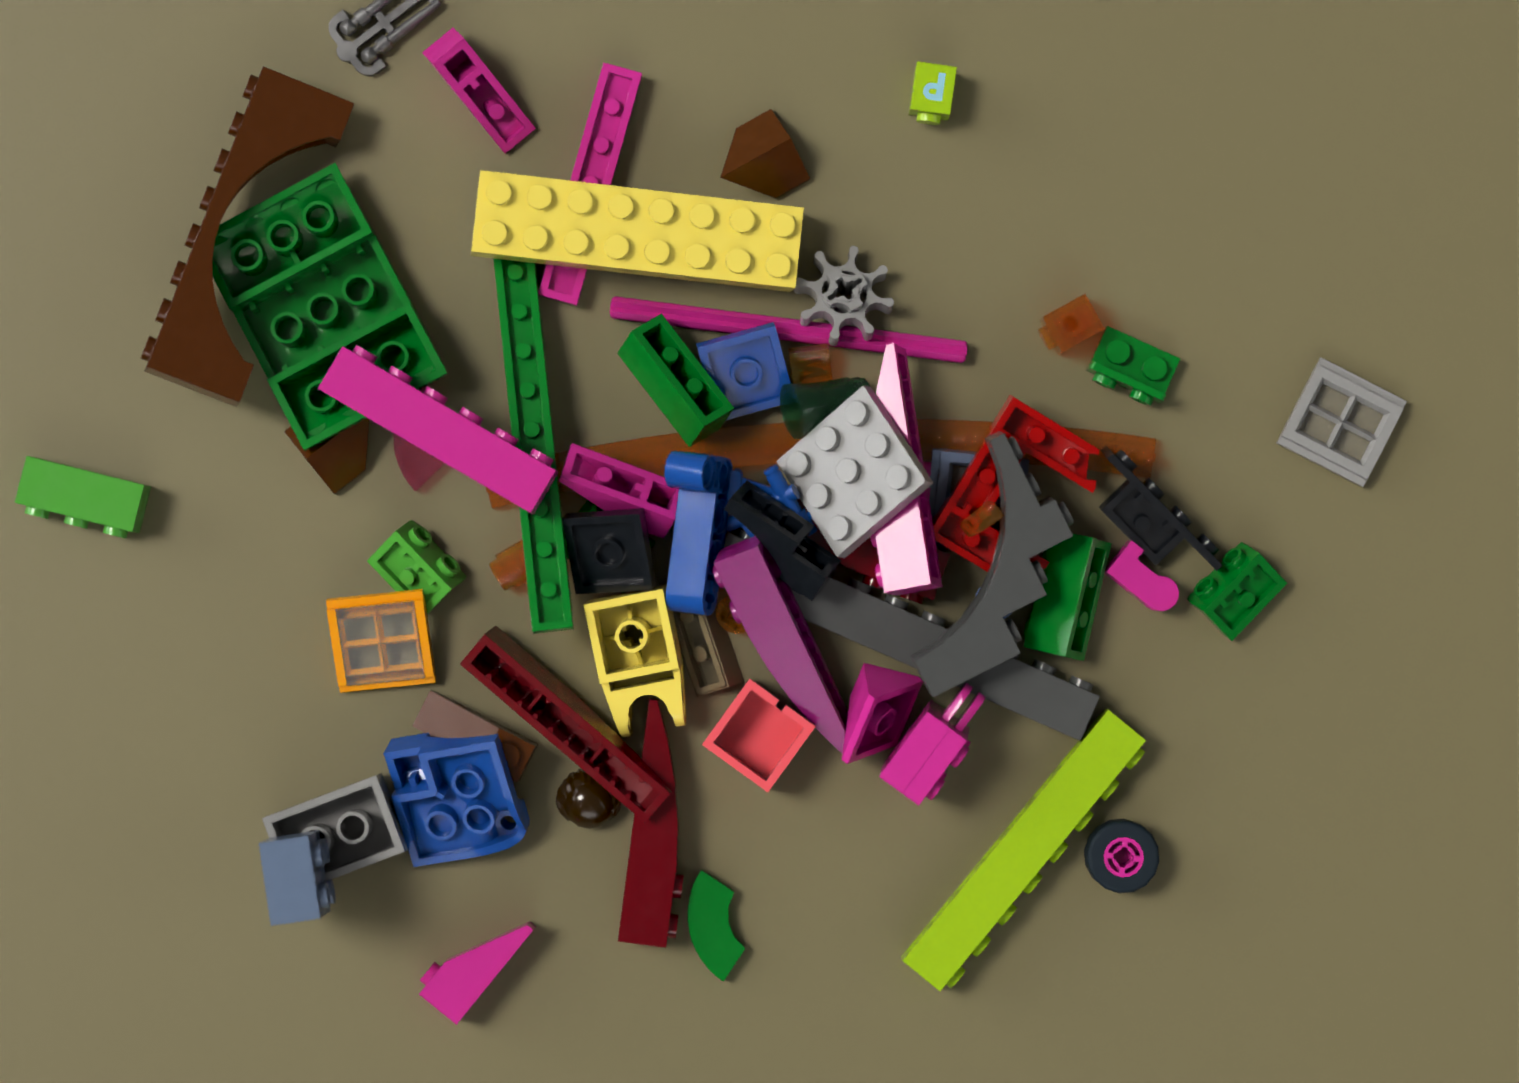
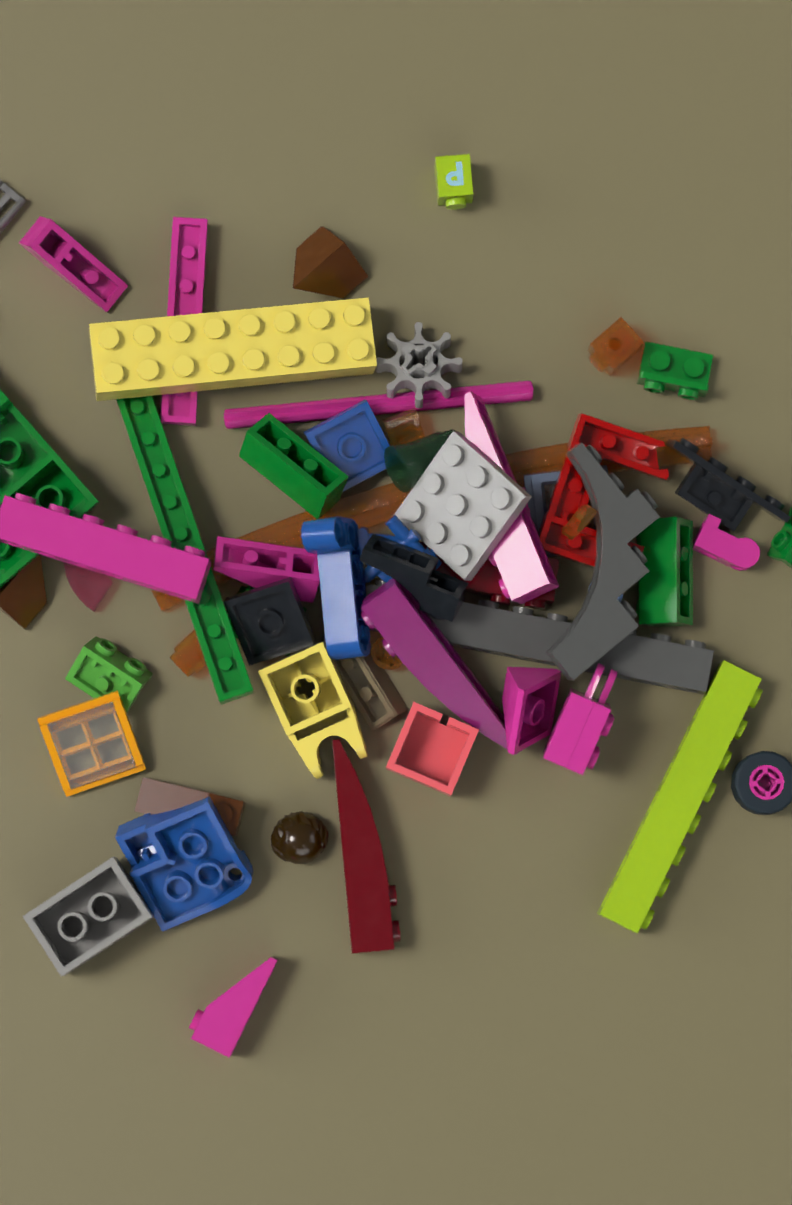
camera: 20 degrees left, 5 degrees down
(296, 877) = (63, 956): sand blue brick -> none
(565, 721) = (265, 775): dark red slope -> none
(710, 925) = (427, 923): green tile -> none

